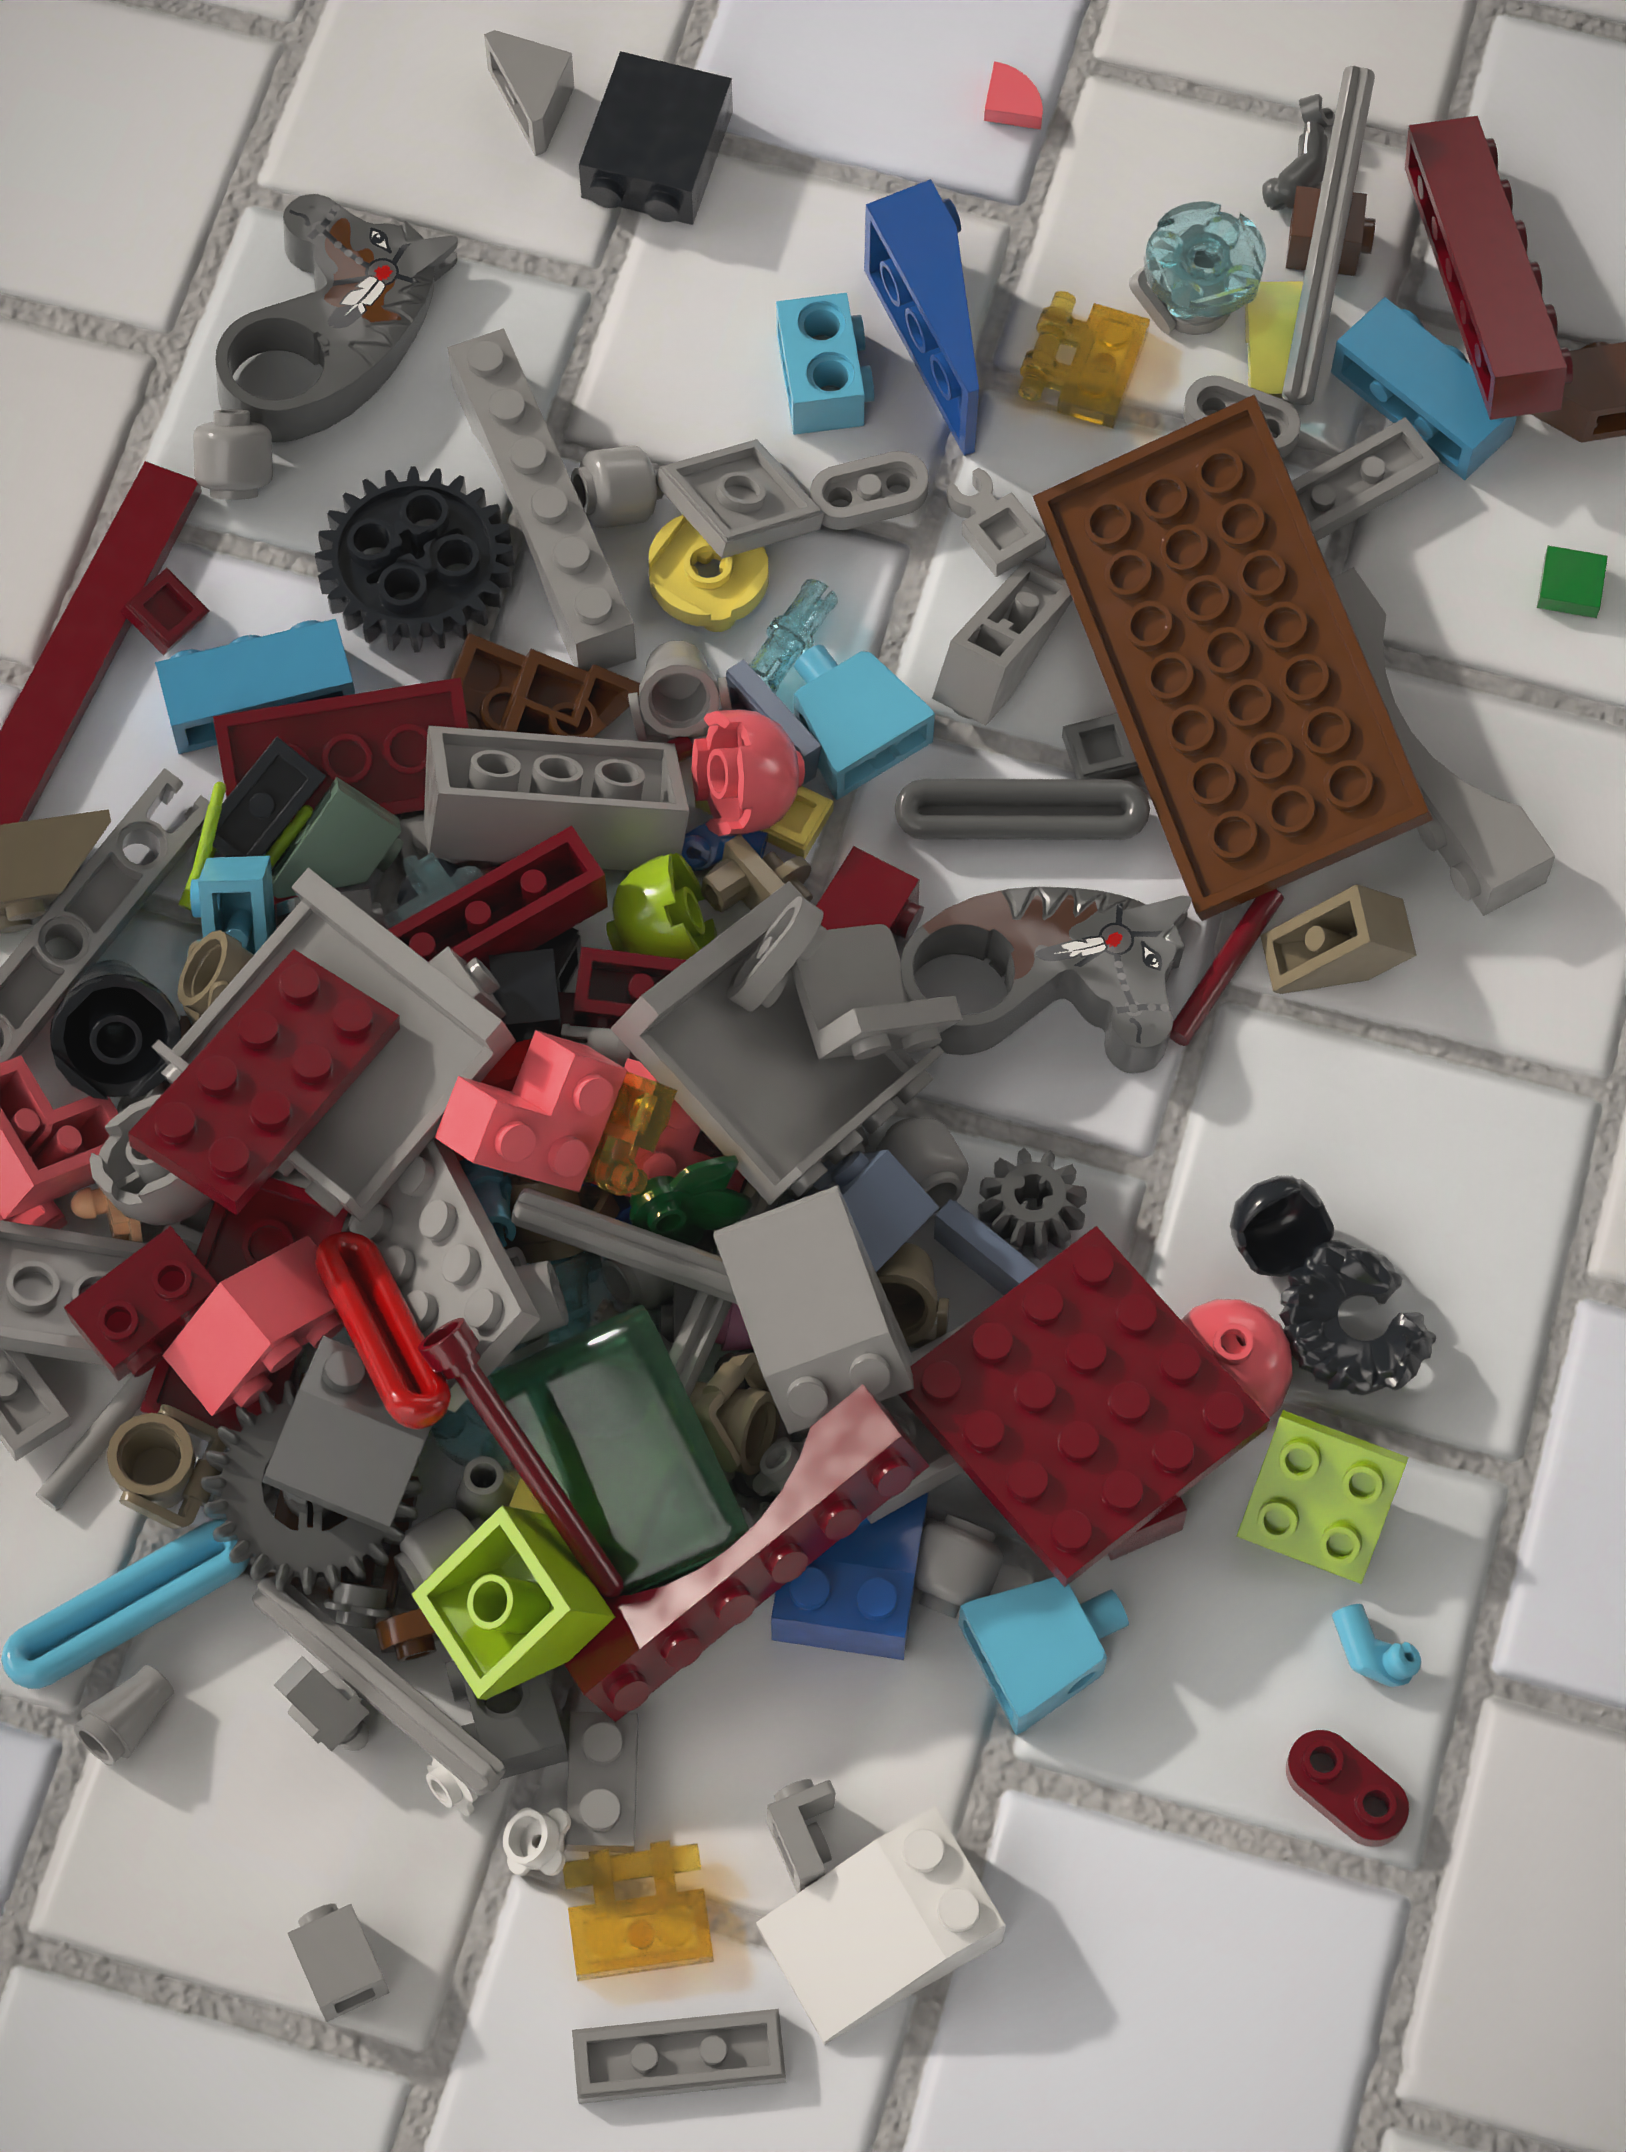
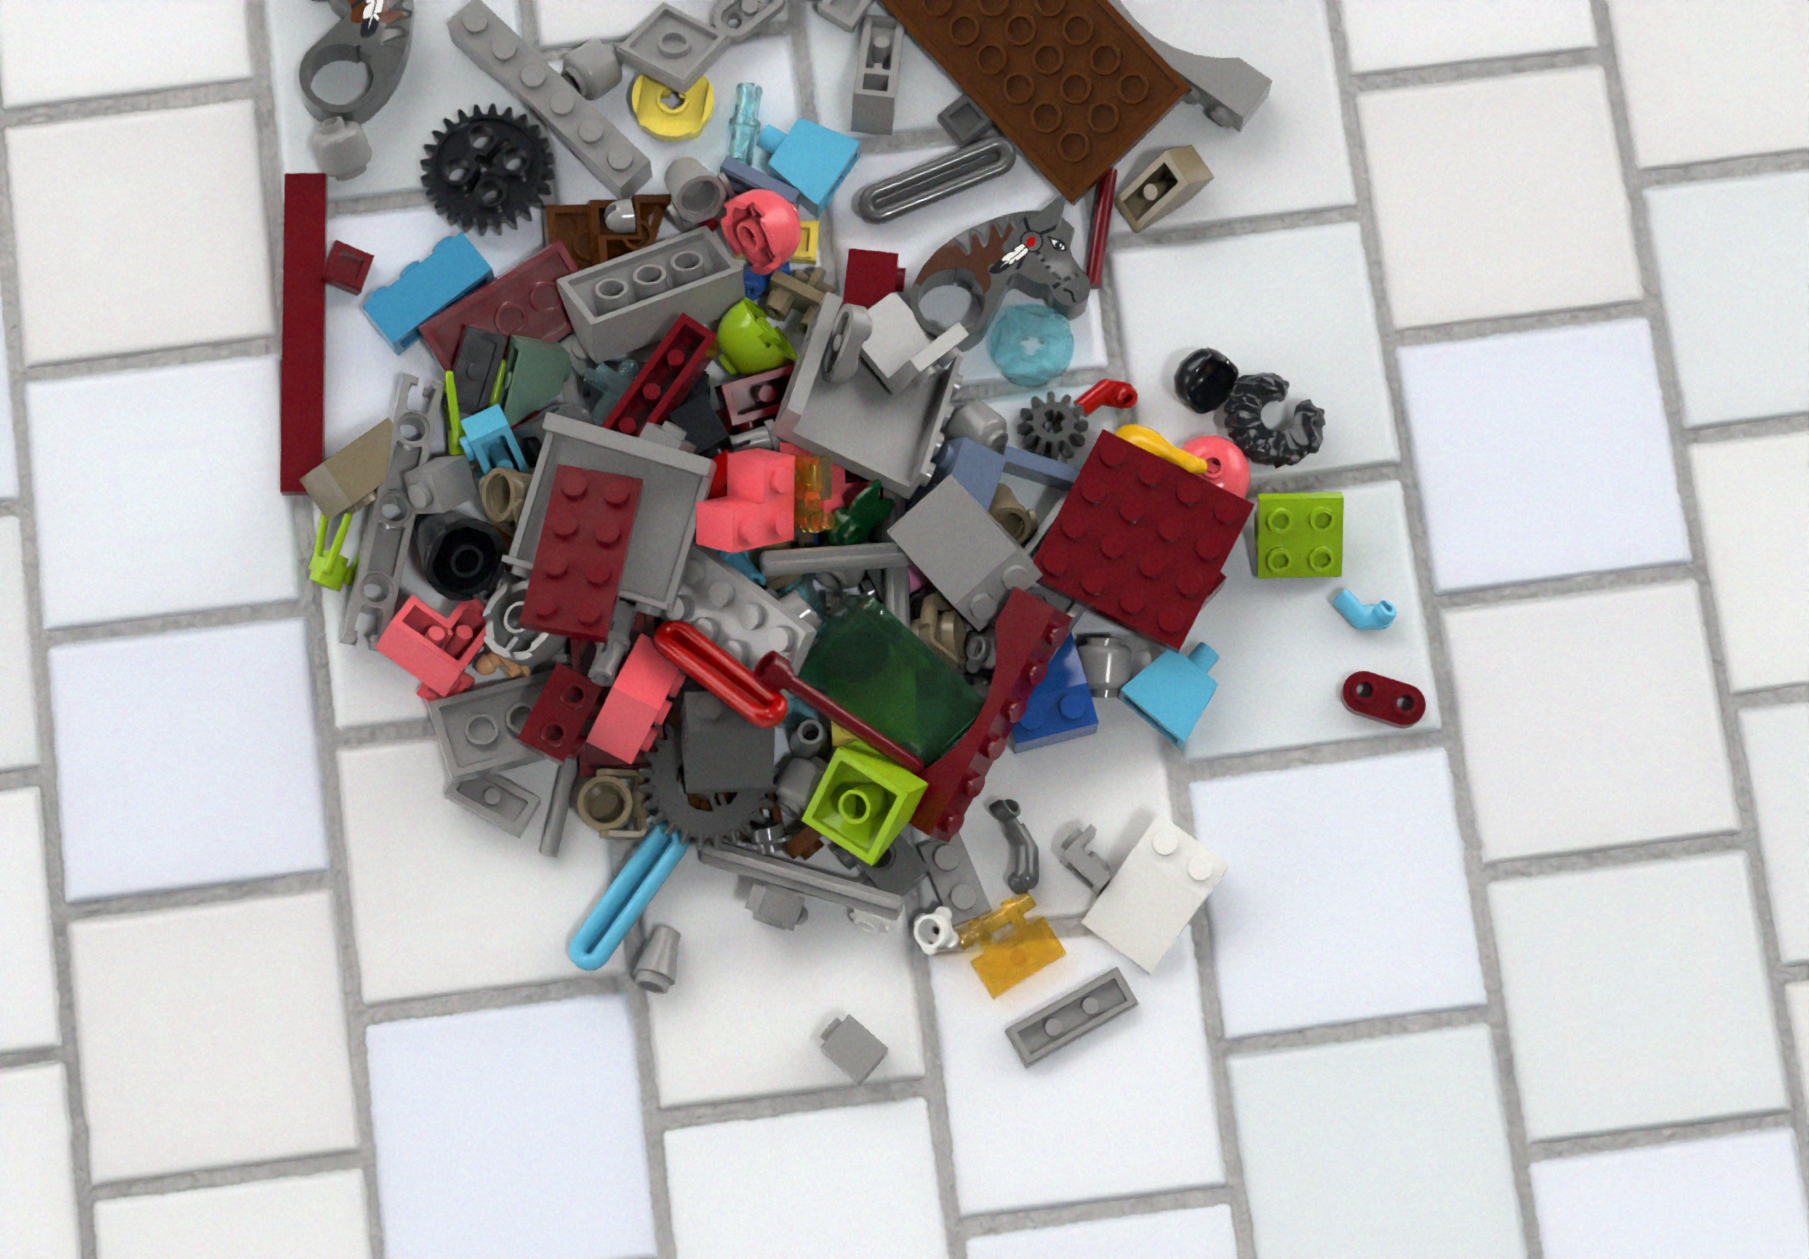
camera: 25 degrees left, 10 degrees up
(139, 932) = (440, 484): none -> light grey brick
(261, 1231) = (609, 655): none -> light grey pin
(560, 684) = (620, 216): none -> light grey hinge
(724, 1780) = (1026, 850): none -> dark grey arm
(1054, 1048) = (1021, 324): none -> clear light blue plate
(1132, 1191) = (1107, 393): none -> red arm
(1170, 1286) = (1158, 445): none -> yellow piece

